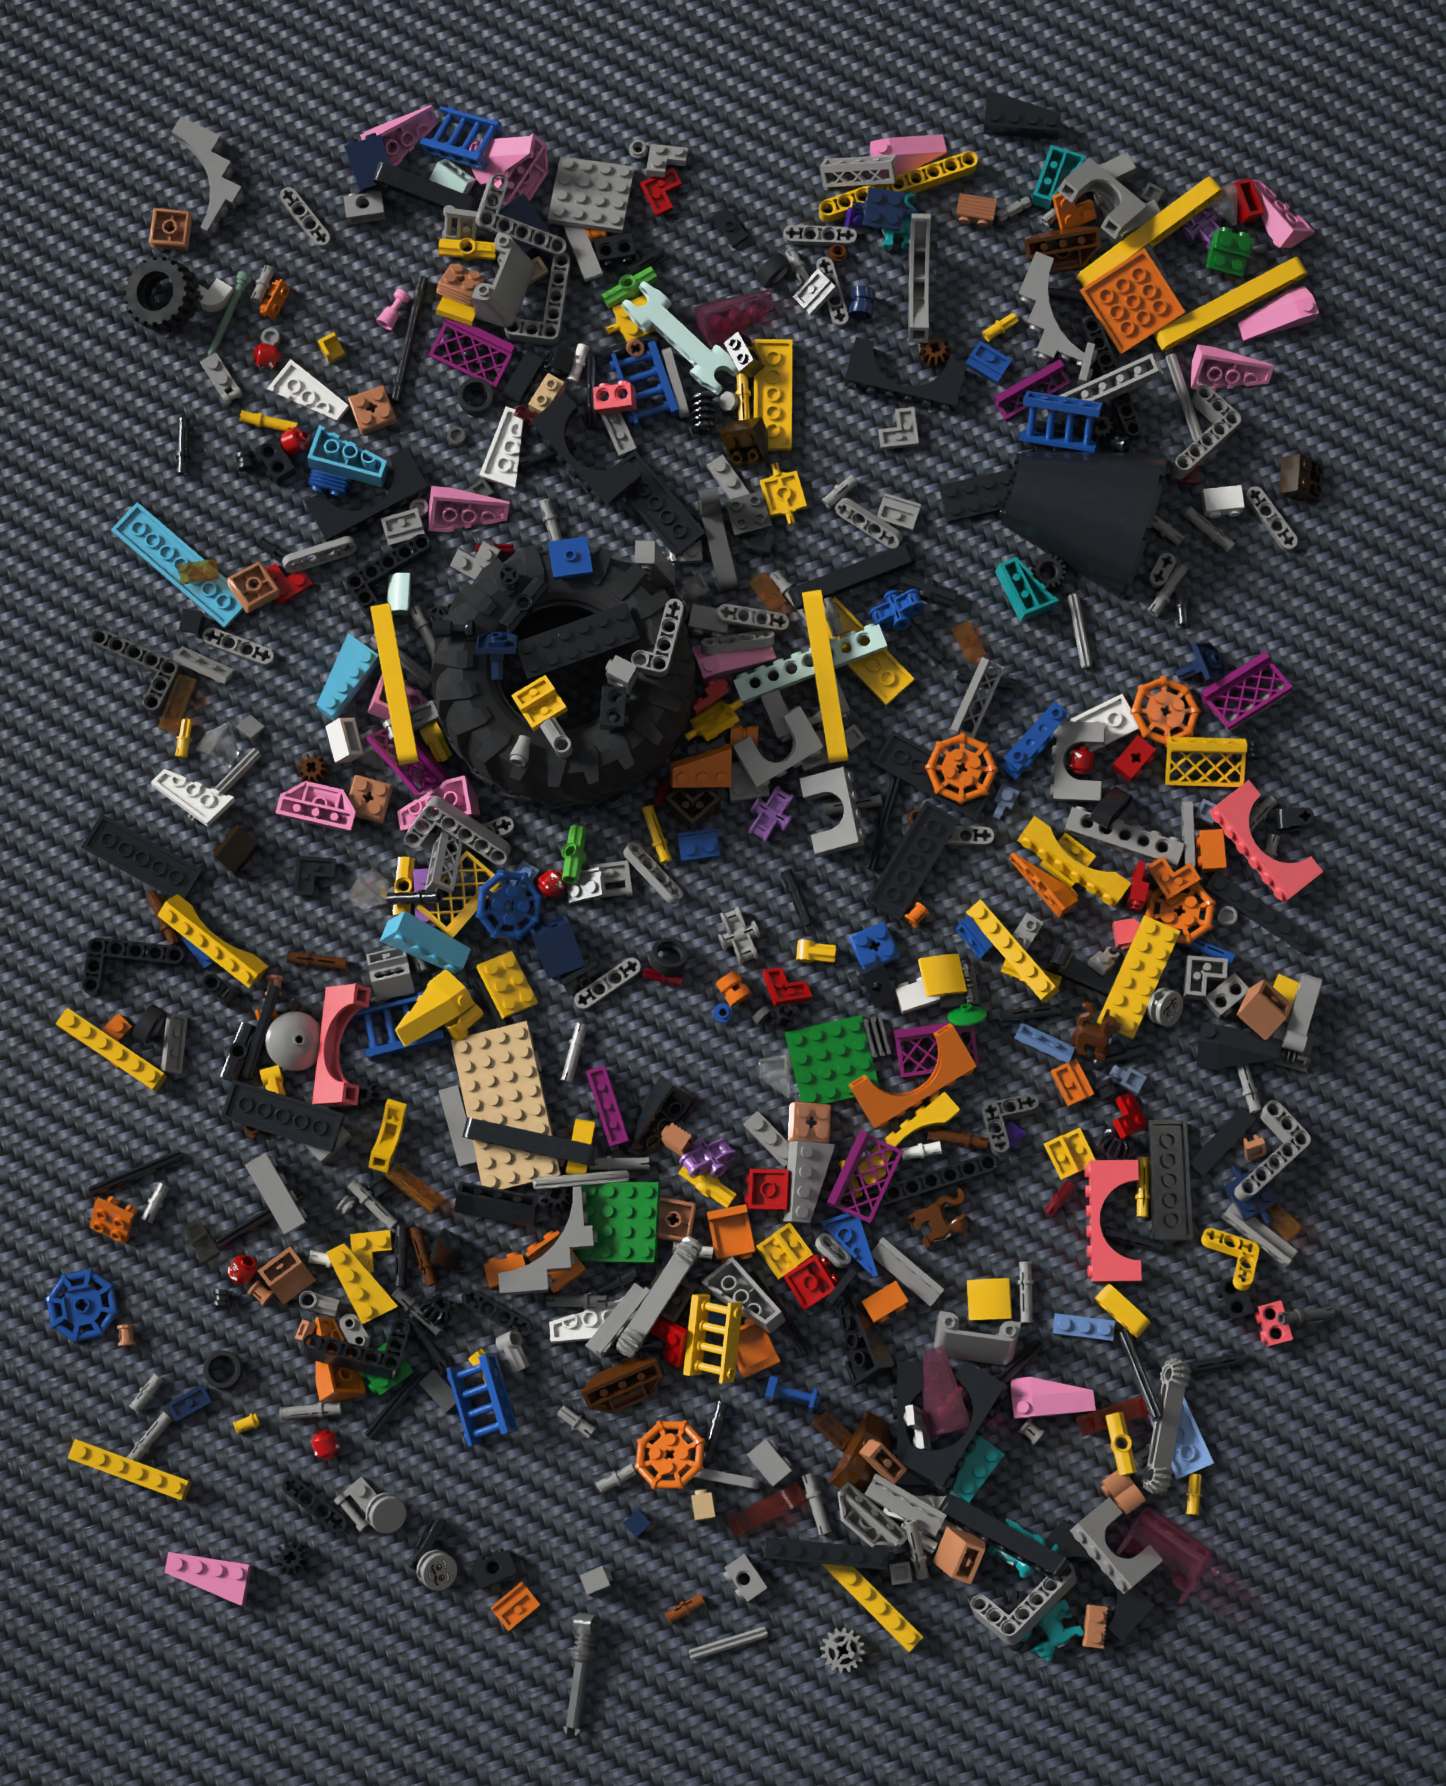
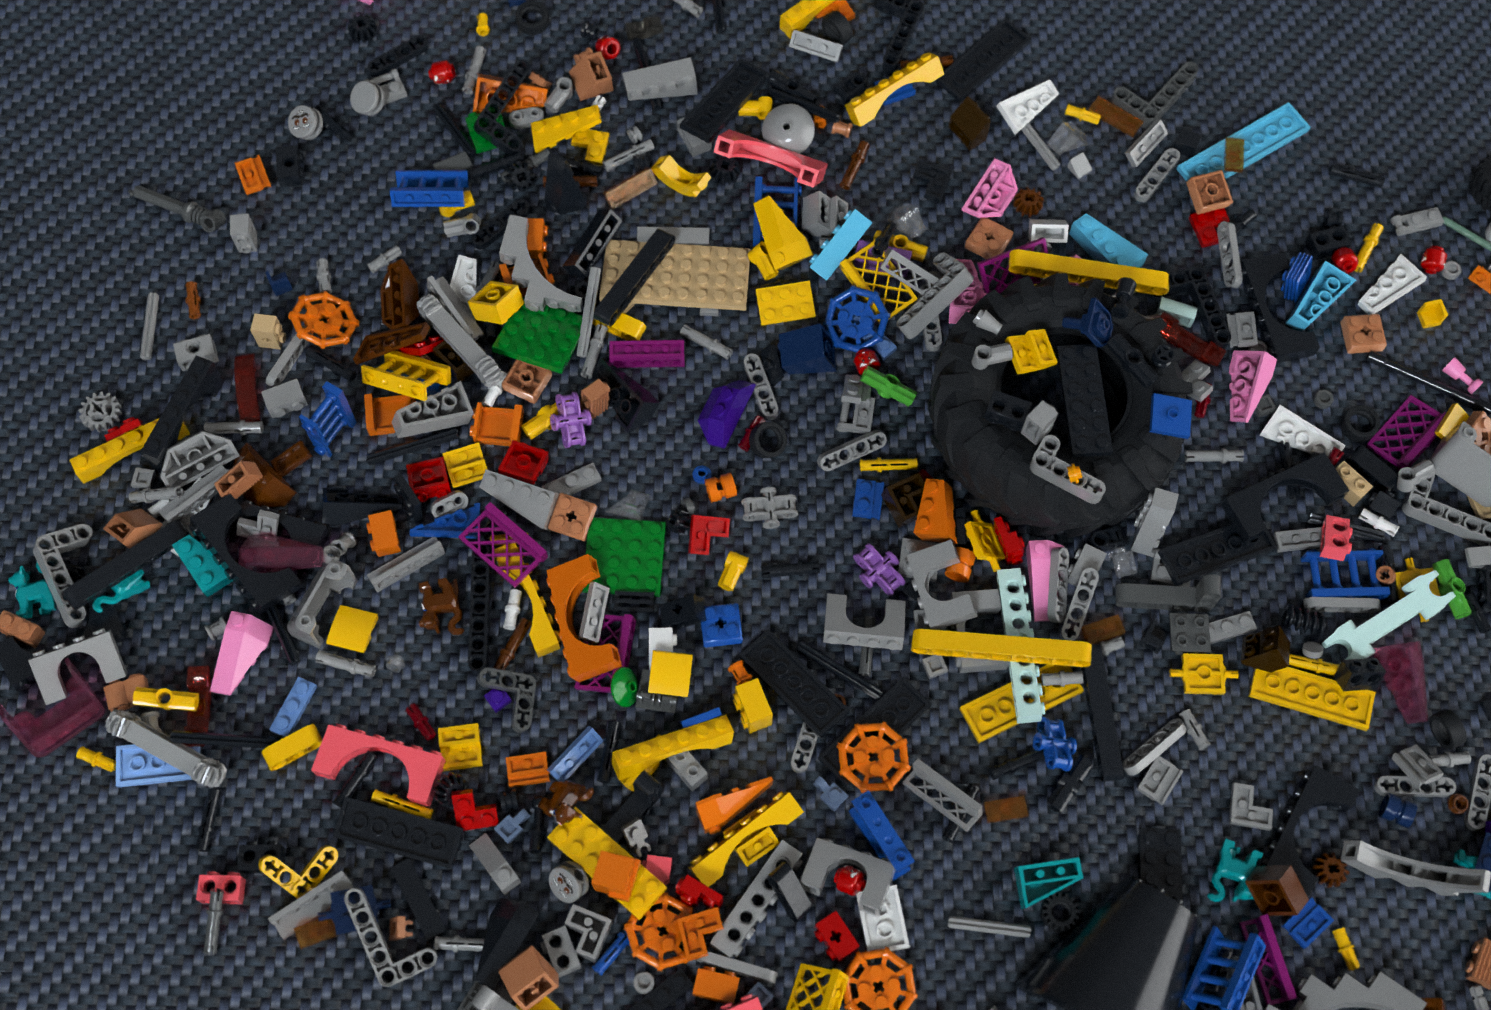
camera: 105 degrees right, 10 degrees down
(432, 574) = (1189, 343): none -> clear red slope
(525, 335) = (1410, 476): none -> light grey piece
(602, 1275) = (496, 302): none -> yellow brick
(646, 1011) = (724, 411): none -> dark purple wedge
(669, 628) = (1074, 473): none -> light orange plate
(678, 1373) = (388, 341): none -> reddish brown wing
(851, 1607) = (129, 425): none -> red plate
(903, 1068) = (594, 613): none -> light grey plate
(913, 1340) = (338, 547): none -> light grey connector
(948, 890) = (753, 706): none -> yellow brick
(960, 433) = (1233, 869): none -> teal animal
(974, 390) = (1277, 890): none -> reddish brown brick
(1010, 1244) = (395, 663): none -> clear plate
(1153, 958) = (615, 875): none -> orange plate
(1168, 1082) = (495, 864): none -> light grey slope

